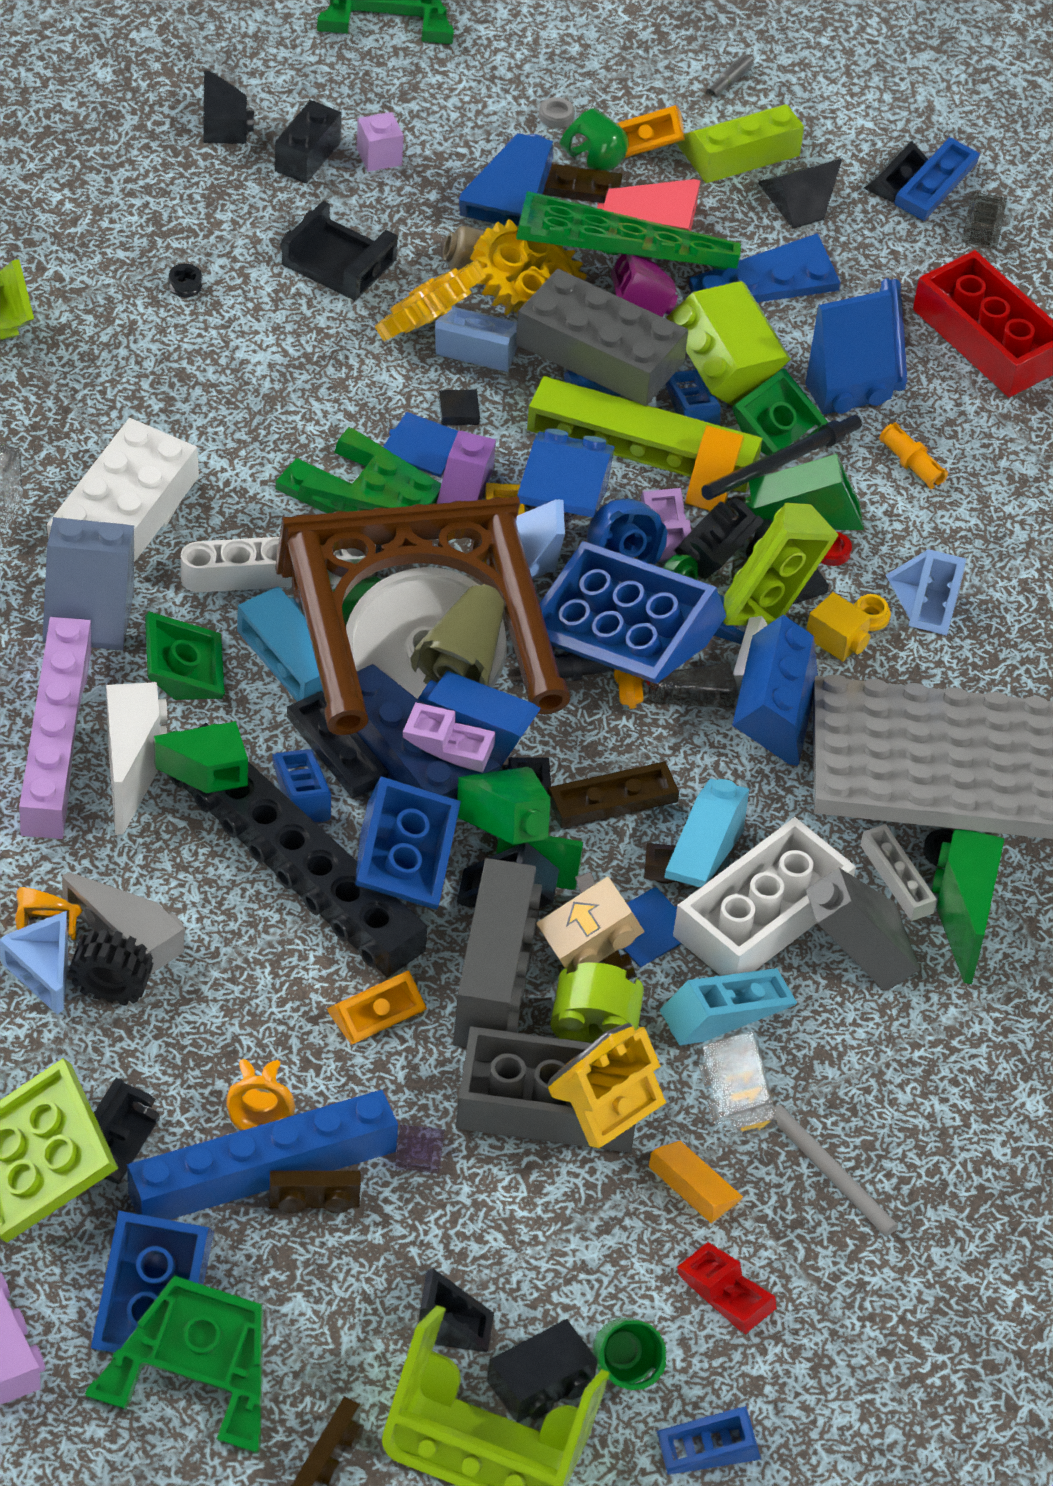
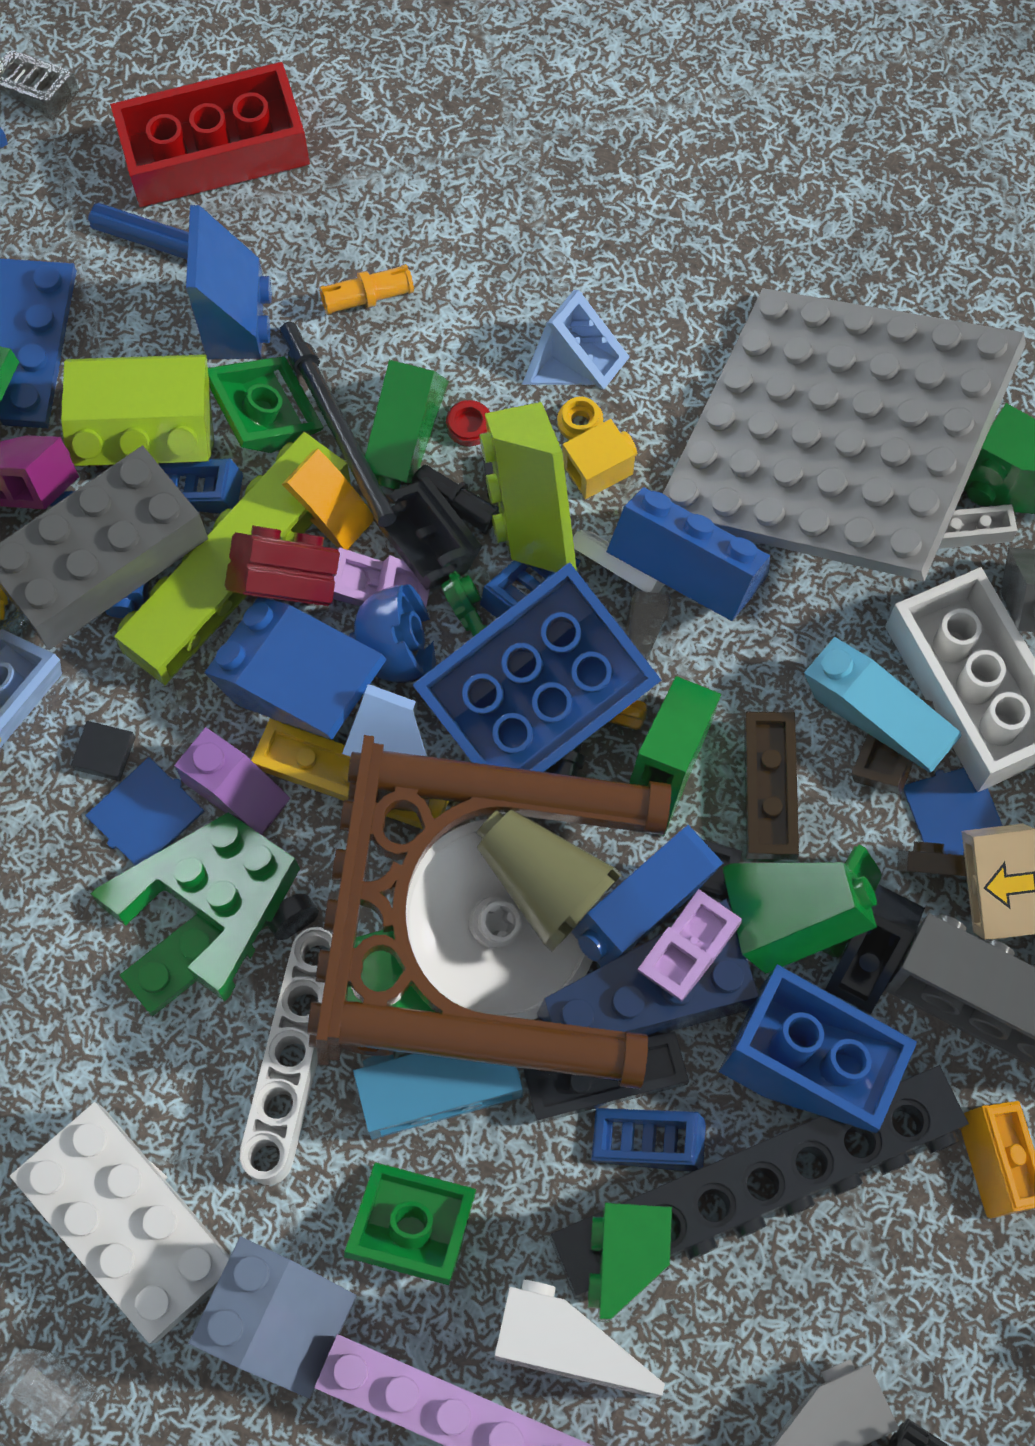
camera: 65 degrees left, 20 degrees up
(608, 719) = (676, 738): none -> green slope
(642, 450) = (282, 568): none -> dark red brick

